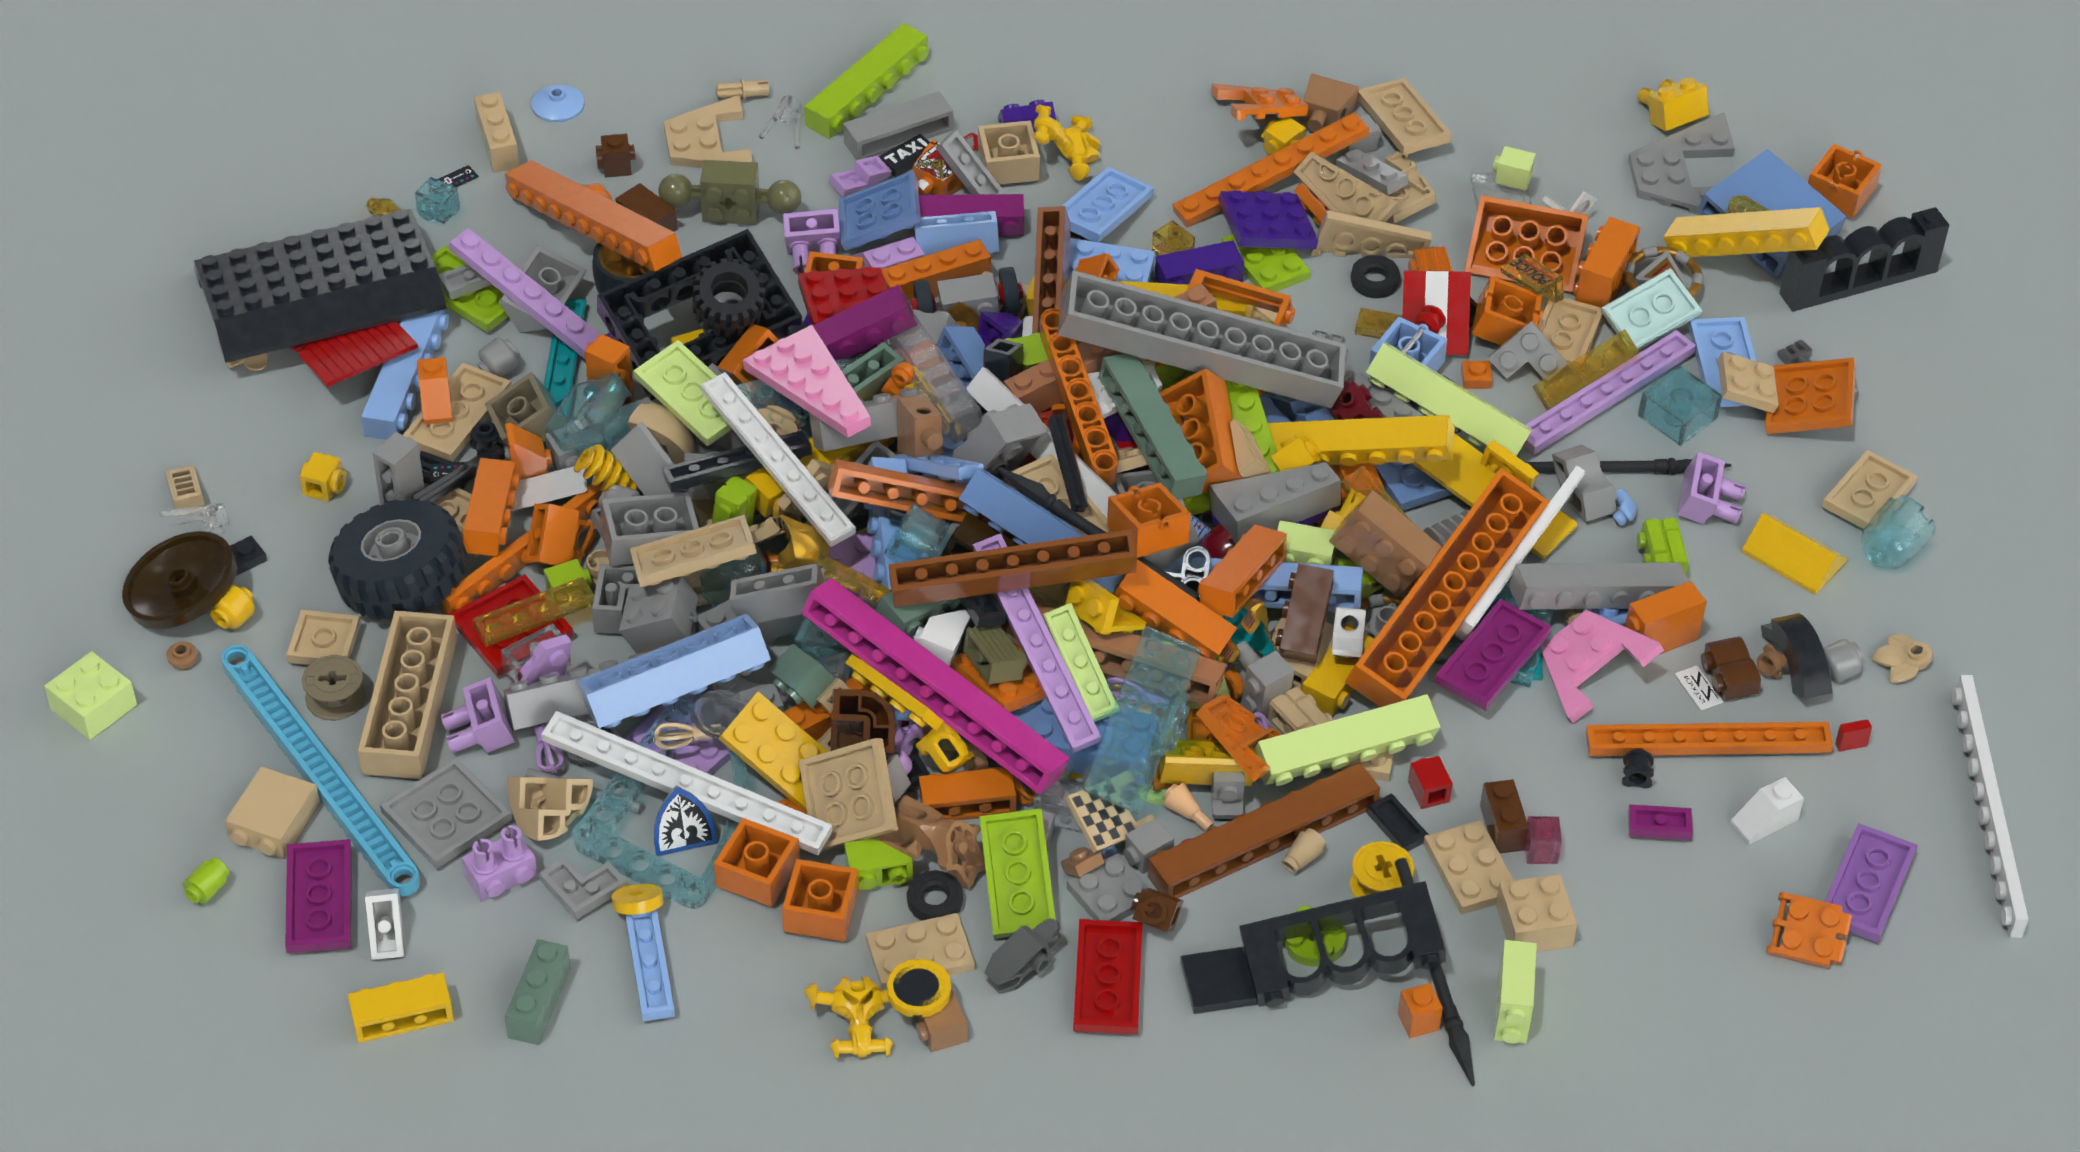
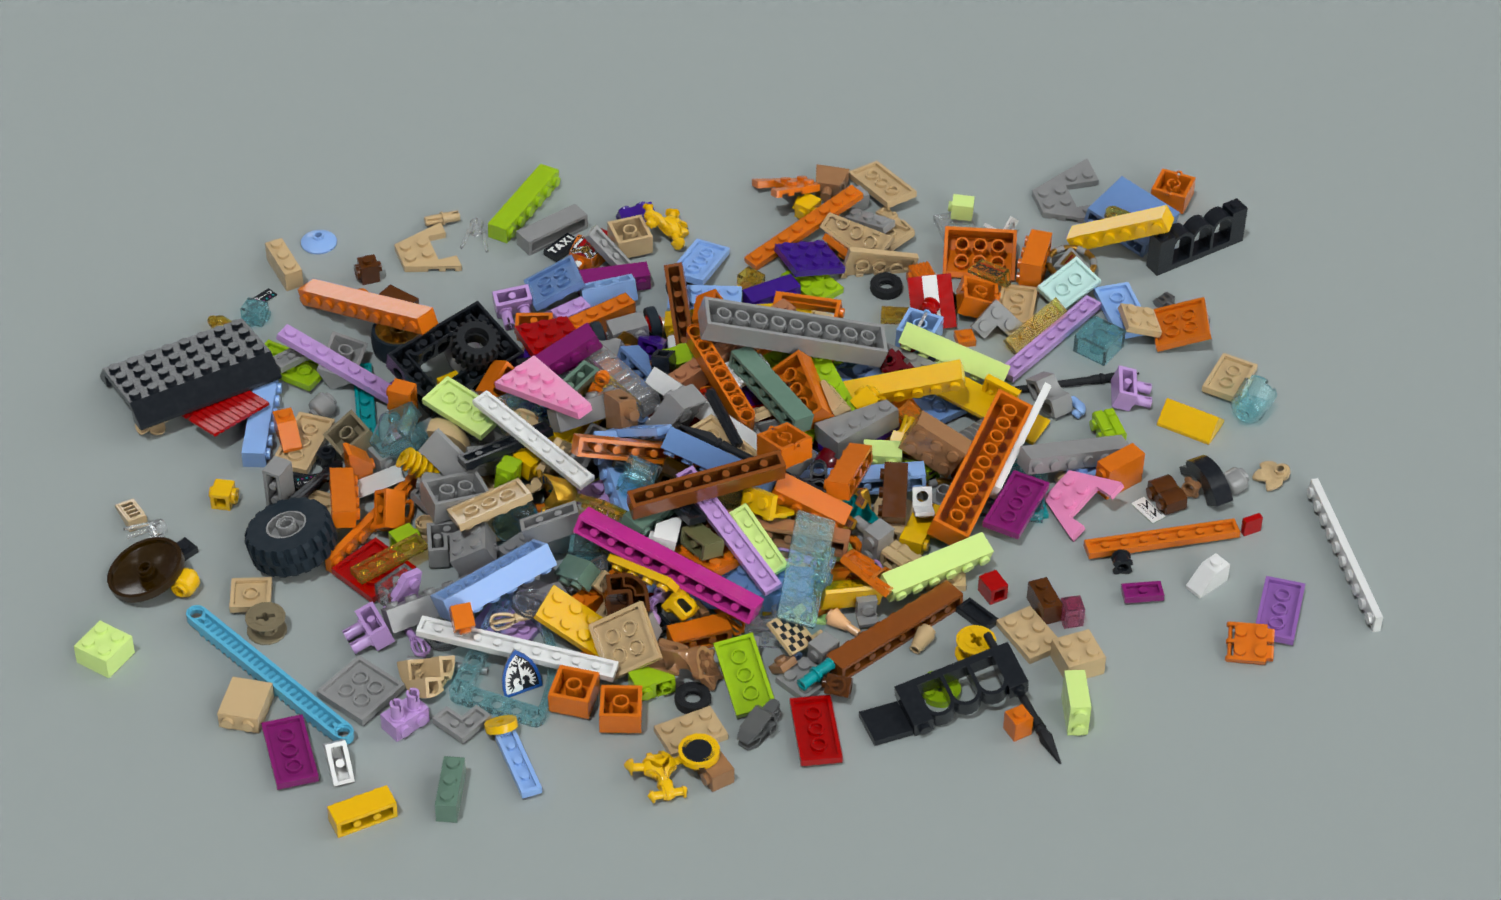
camera: 10 degrees left, 5 degrees down
(182, 655) = (158, 617): medium nougat plate -> none
(205, 880) = (212, 752): lime brick -> none
(407, 695) = (317, 620): tan brick -> none
(610, 726) = (462, 618): none -> orange brick
(730, 192) = (452, 283): olive brick -> none
(865, 174) = (536, 262): lavender slope -> none
(1126, 887) = (816, 674): none -> teal pin
(1675, 103) = (1055, 156): yellow brick -> none

